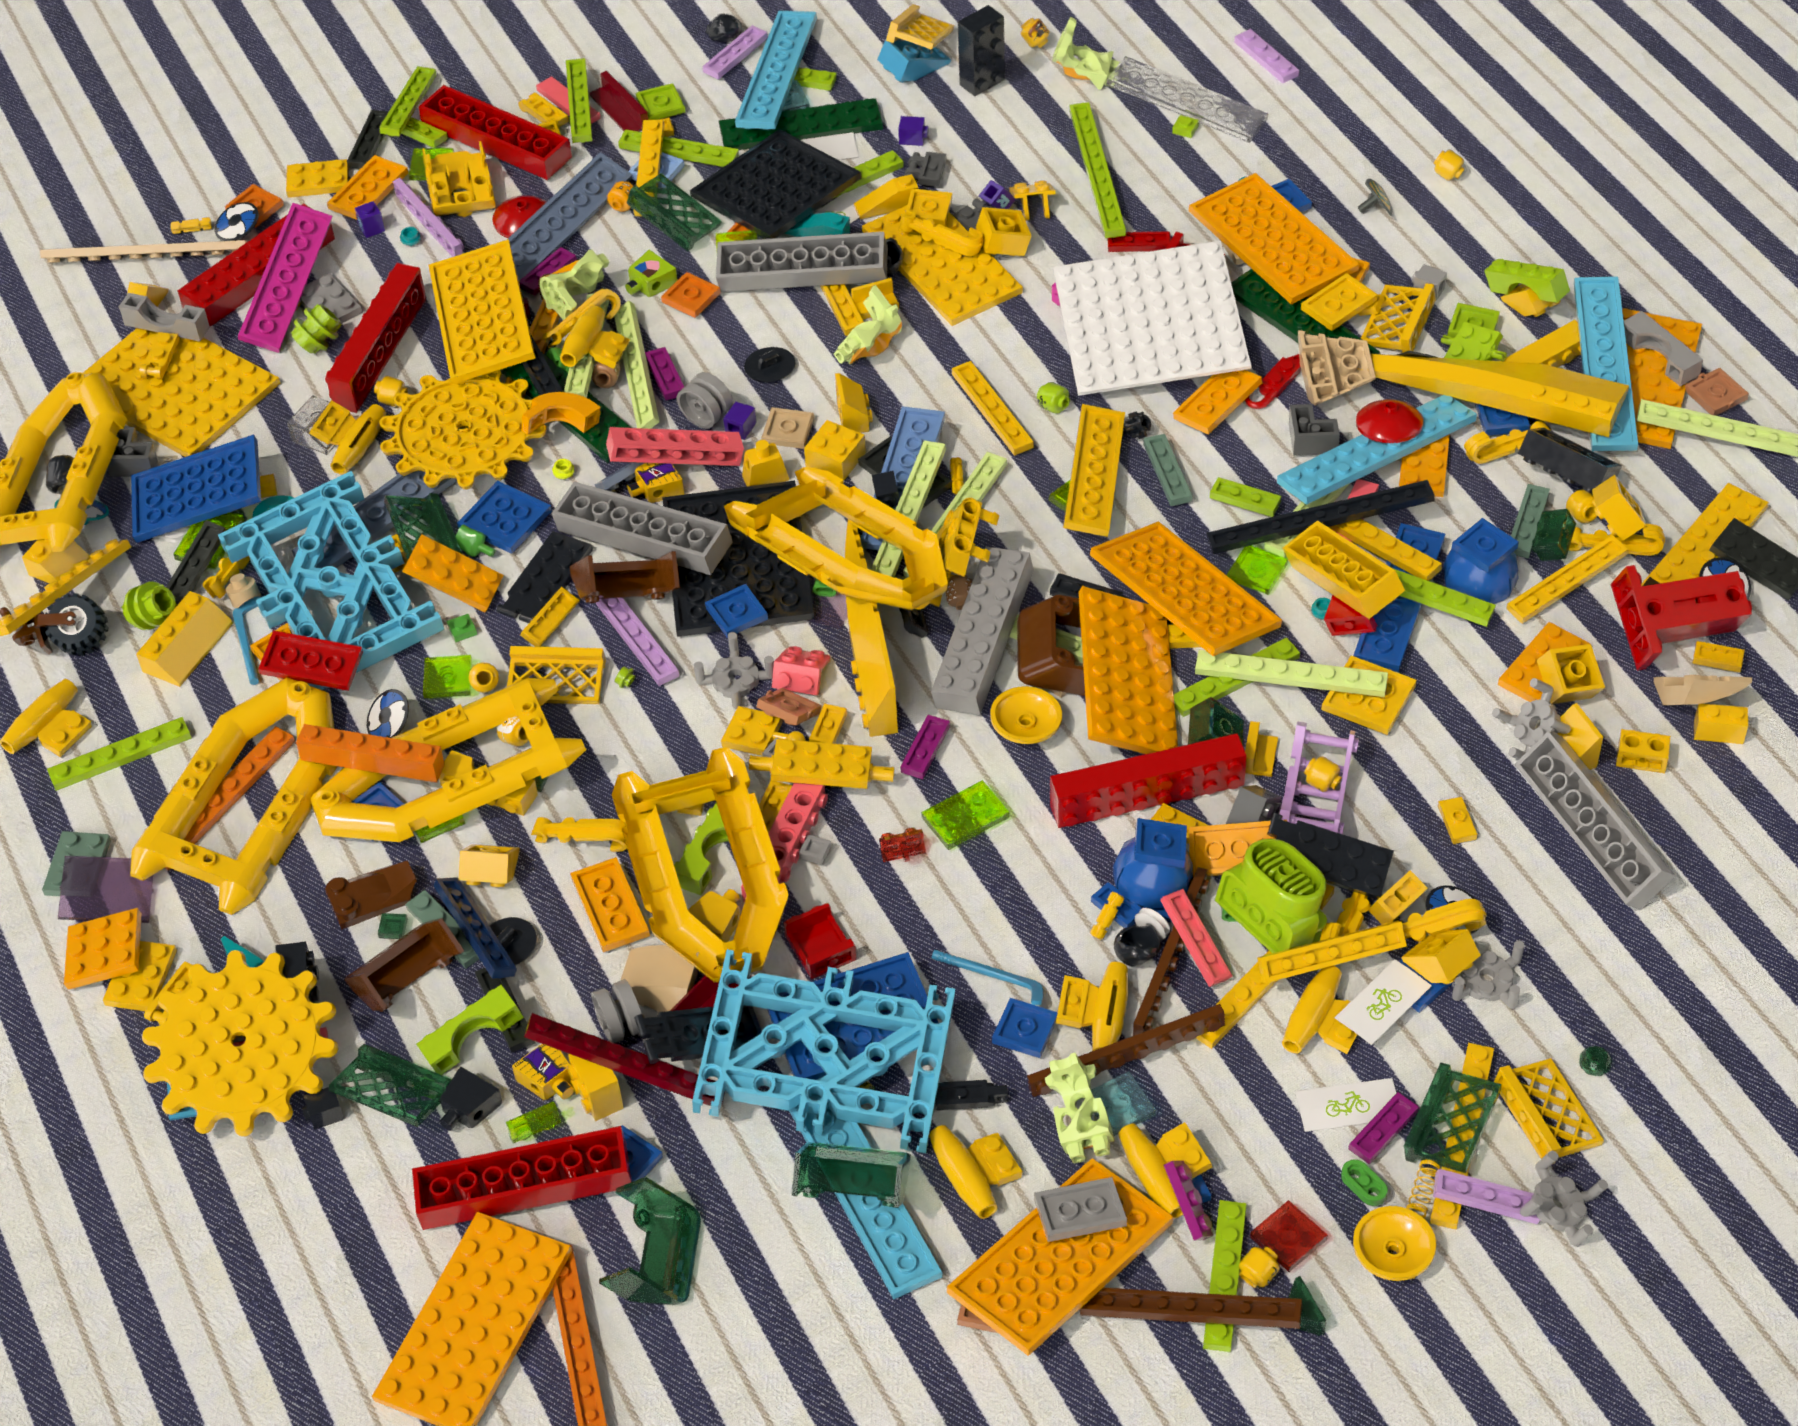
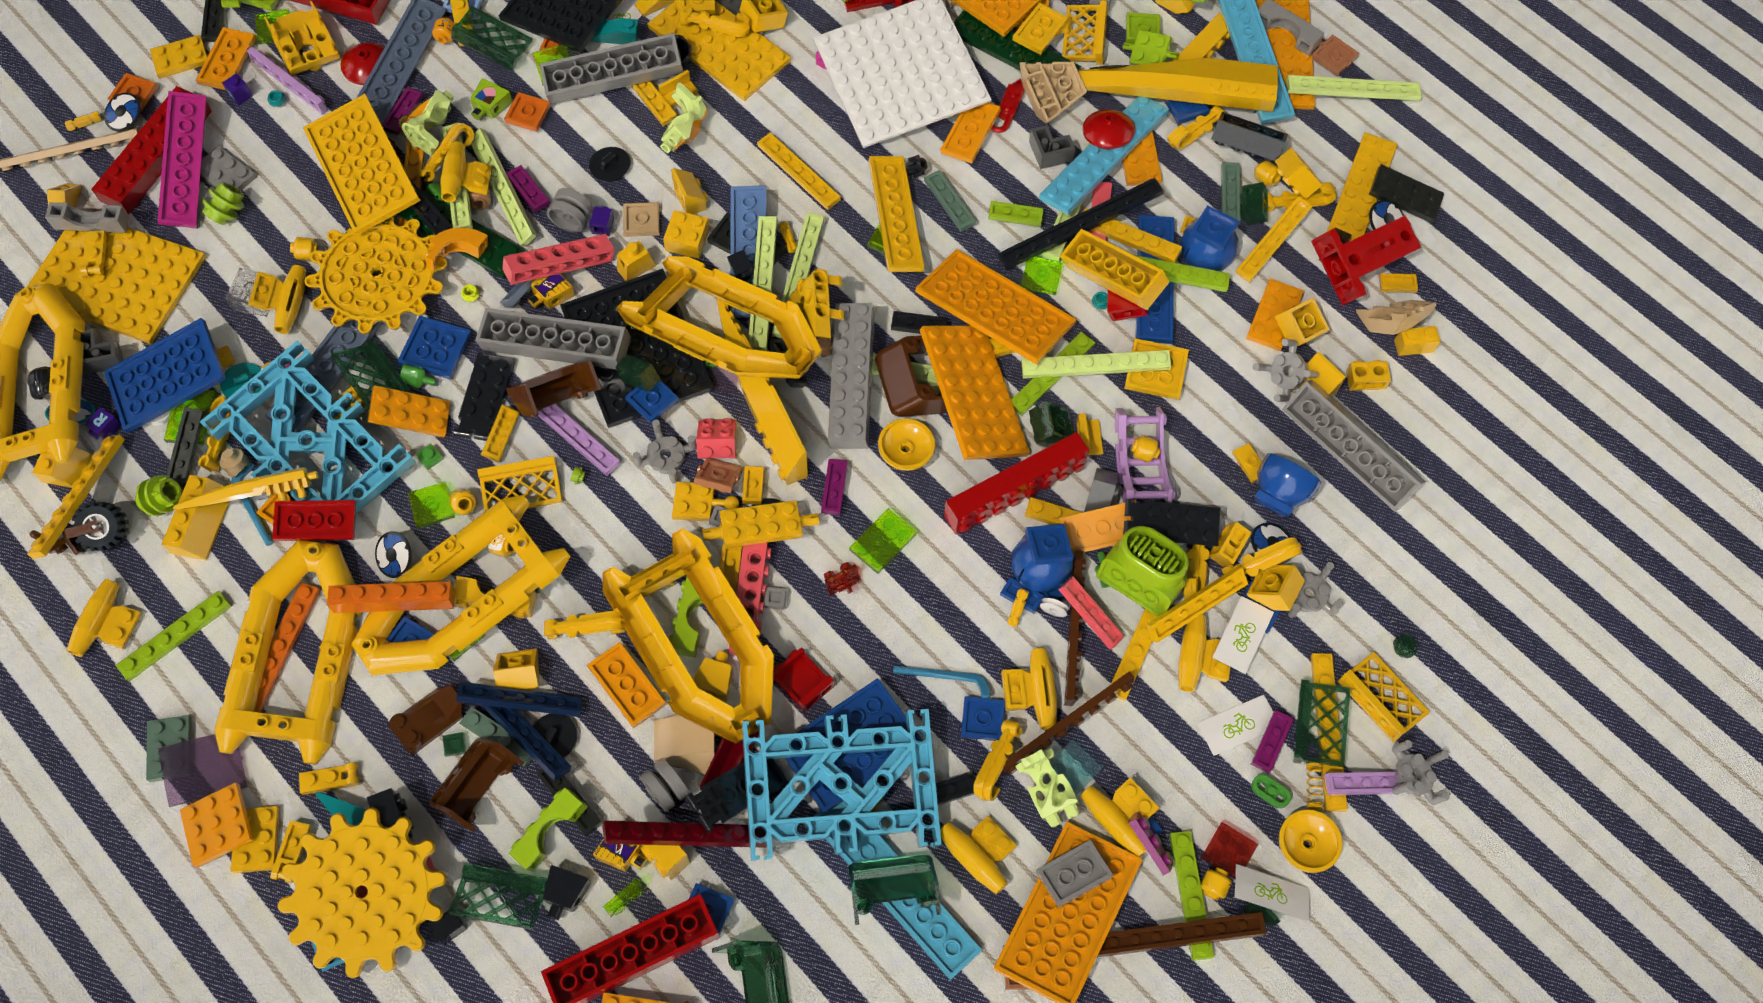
camera: 20 degrees left, 15 degrees up
(112, 526) = (102, 424): none -> dark purple brick
(241, 931) = (328, 779): none -> yellow plate
(268, 612) = (268, 484): none -> yellow piece
(376, 337) = (277, 202): red brick -> none
(481, 890) = (519, 699): none -> dark blue plate
(726, 577) = (637, 373): none -> clear green brick
(1022, 1072) = (995, 761): none -> yellow piece
(1053, 397) = (844, 153): lime head -> none
(1137, 944) = (1048, 628): black hair -> none
(1326, 1290) = (1272, 892): none -> white sticker
(1486, 844) = (1284, 485): none -> blue plate

